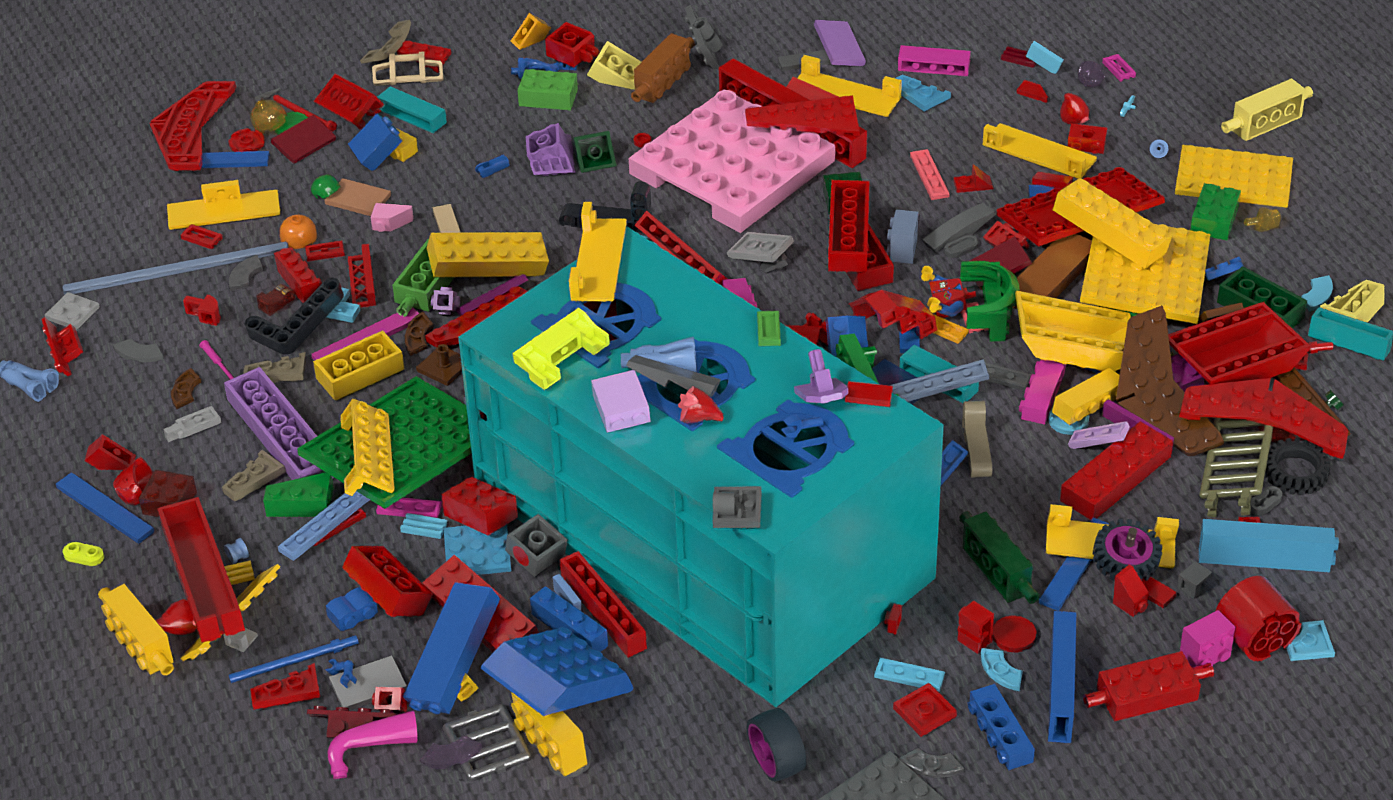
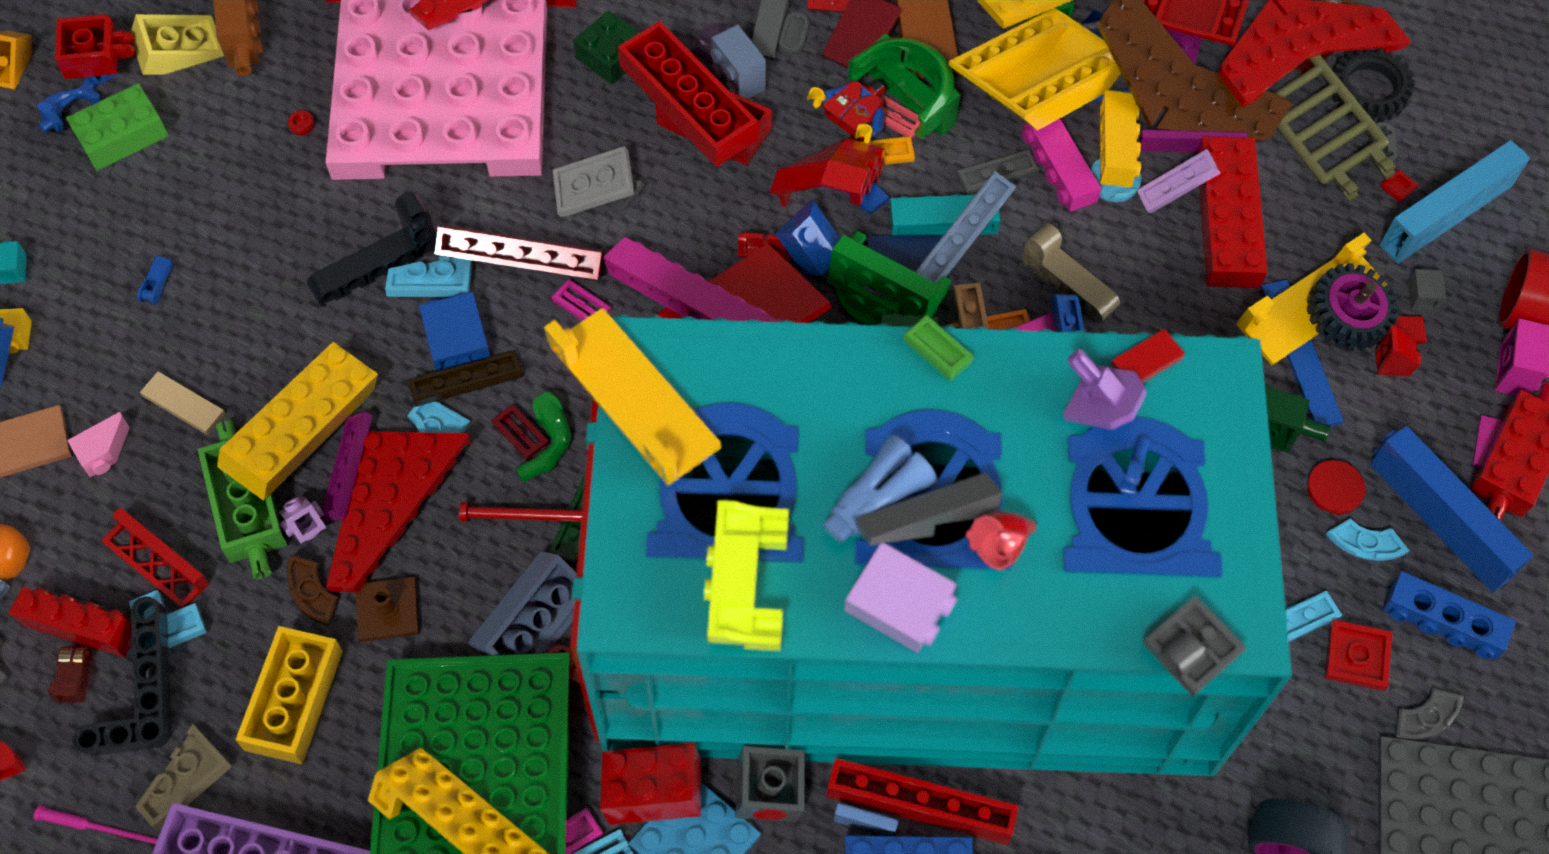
camera: 45 degrees left, 20 degrees up
(324, 253) = (66, 560): red tile -> none
(389, 325) = (246, 646): dark pink tile -> none
(550, 151) = (212, 215): medium lavender slope -> none
(593, 151) = (264, 178): dark green slope -> none
(975, 626) = (1314, 515): red brick -> none

